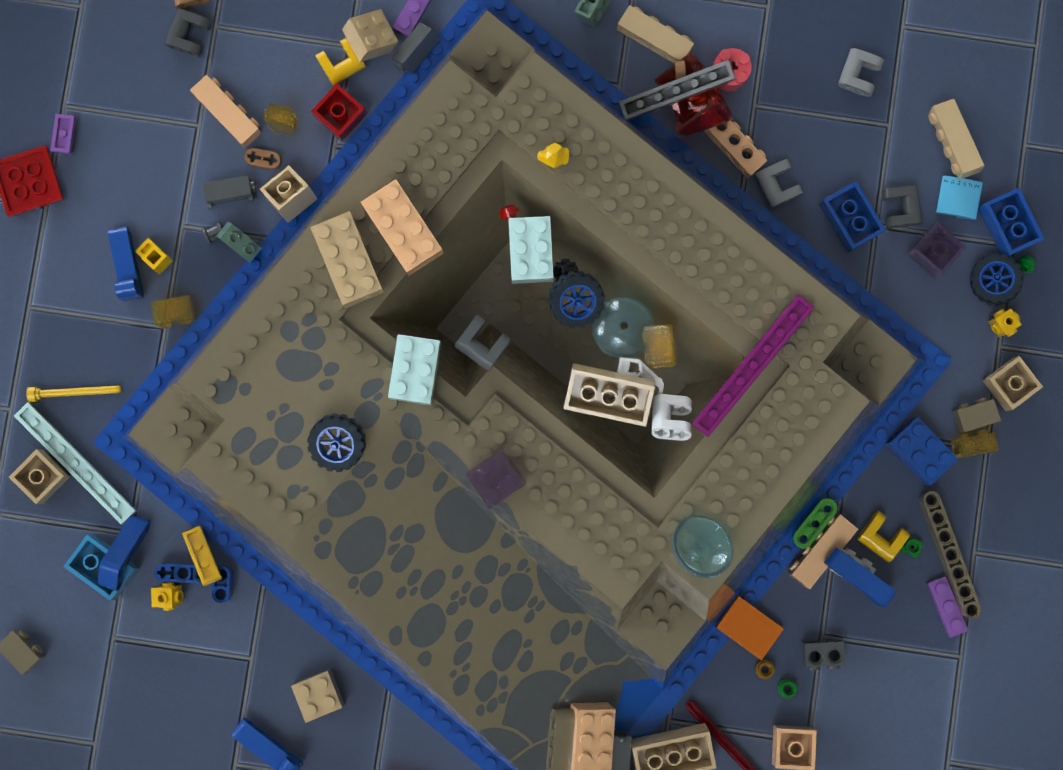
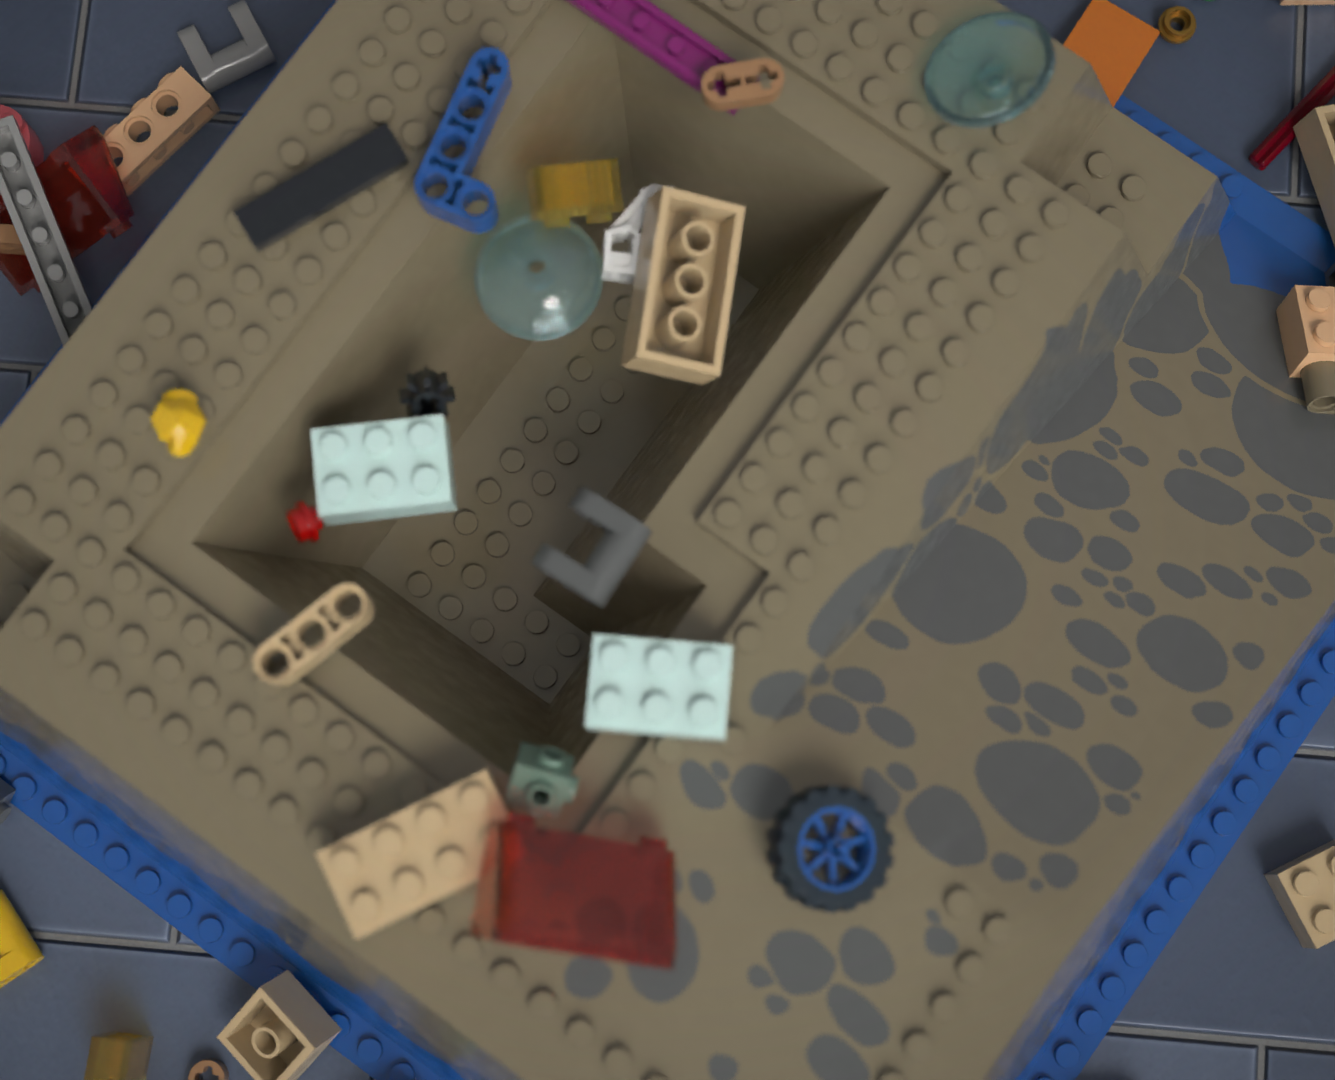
camera: 85 degrees left, 5 degrees down
(321, 326) = (577, 893): none -> clear red windscreen
(339, 112) = (100, 937): red brick -> none
(376, 313) = (541, 780): none -> sand green brick
(402, 227) = (346, 738): light nougat brick -> none
(446, 205) = (291, 637): none -> tan beam
(496, 478) = (880, 499): clear purple brick -> none
(575, 318) = (512, 341): black wheel -> none
(662, 408) = (732, 178): white connector -> none
(665, 225) = (321, 187): none -> black tile
(685, 298) = (471, 135): none -> blue beam
(708, 426) = (741, 74): none -> medium nougat beam

